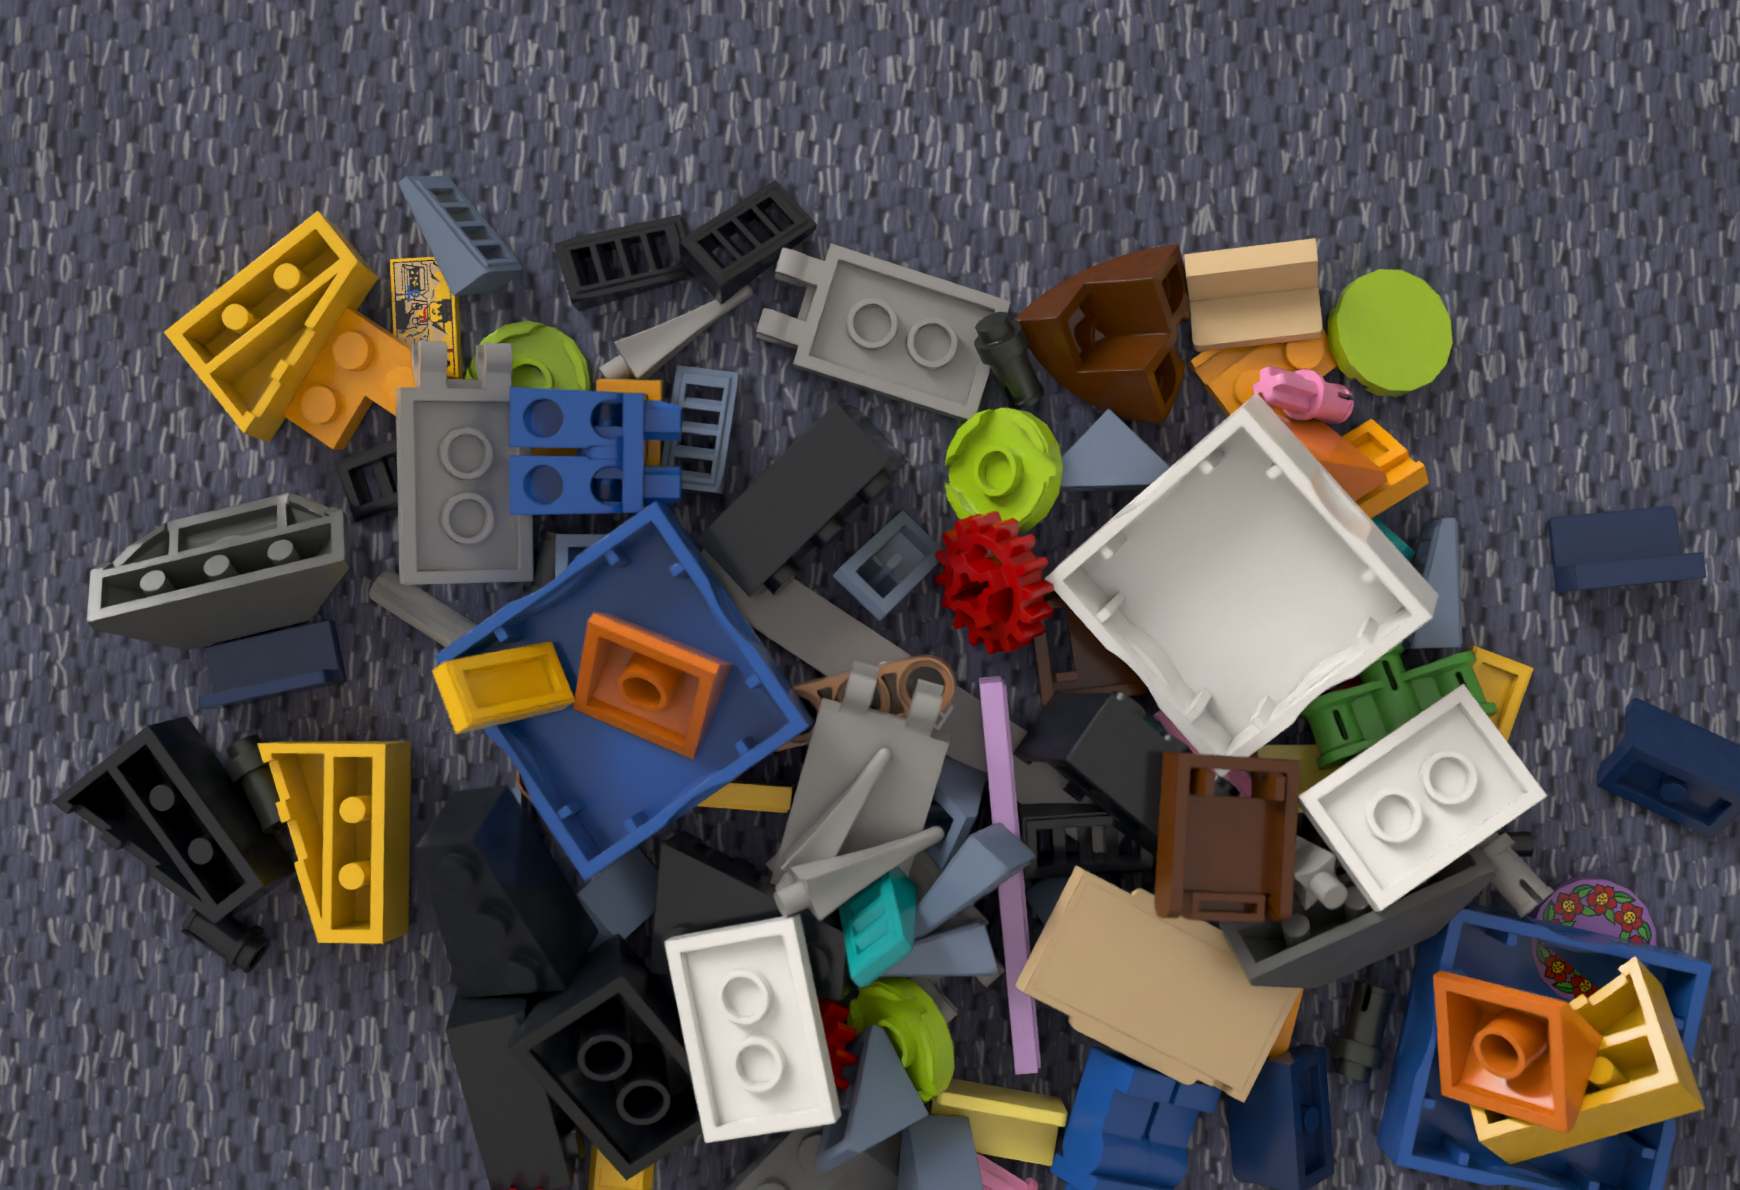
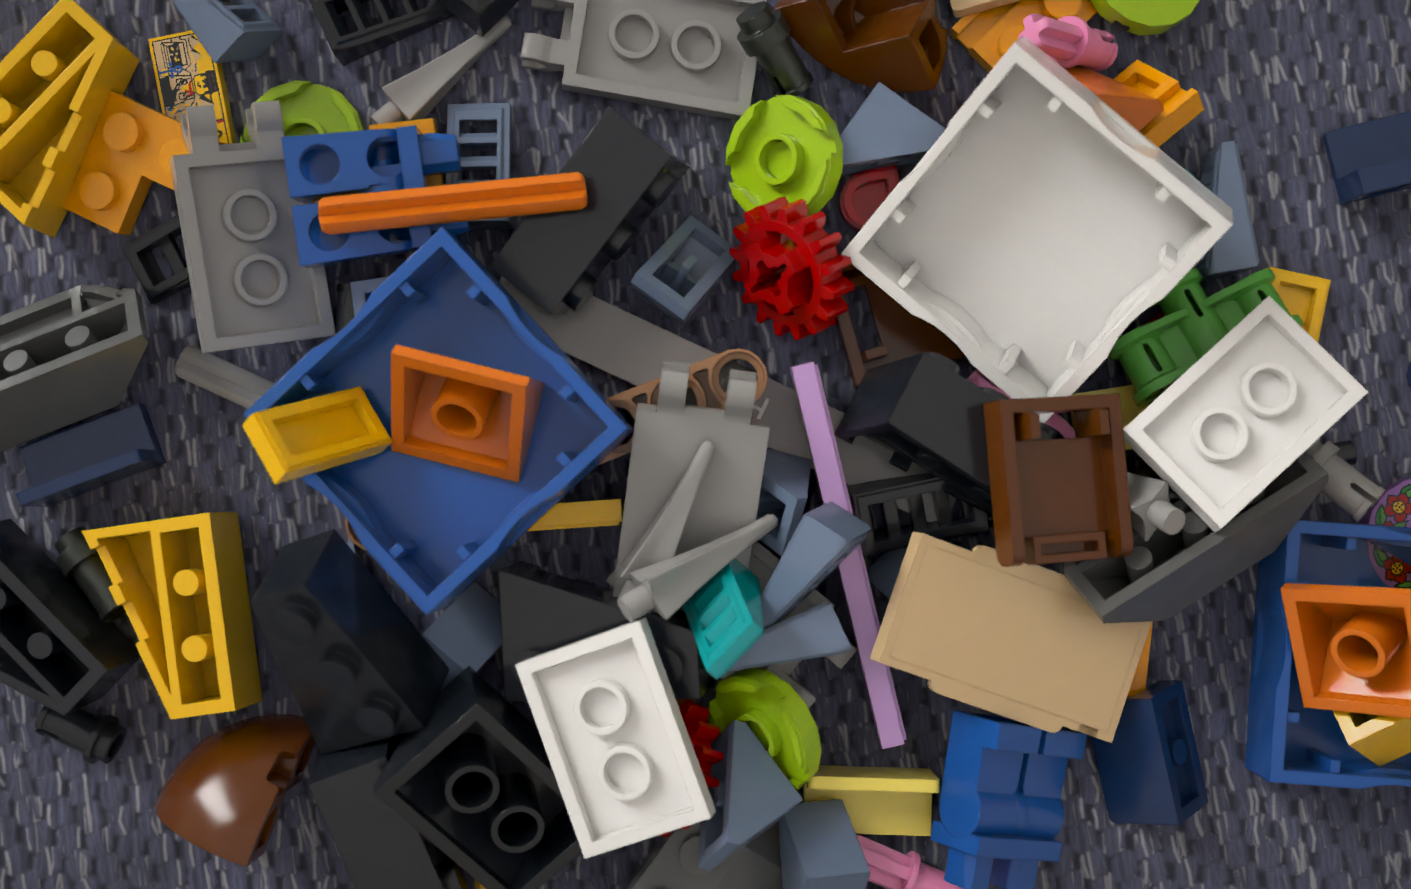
camera: 20 degrees left, 0 degrees up
(369, 1014) = (234, 785): none -> reddish brown brick
(668, 477) = (452, 203): none -> orange axle
(1081, 516) = (865, 194): none -> red tile
(1363, 1032) = (1217, 659): pearl dark grey animal -> none

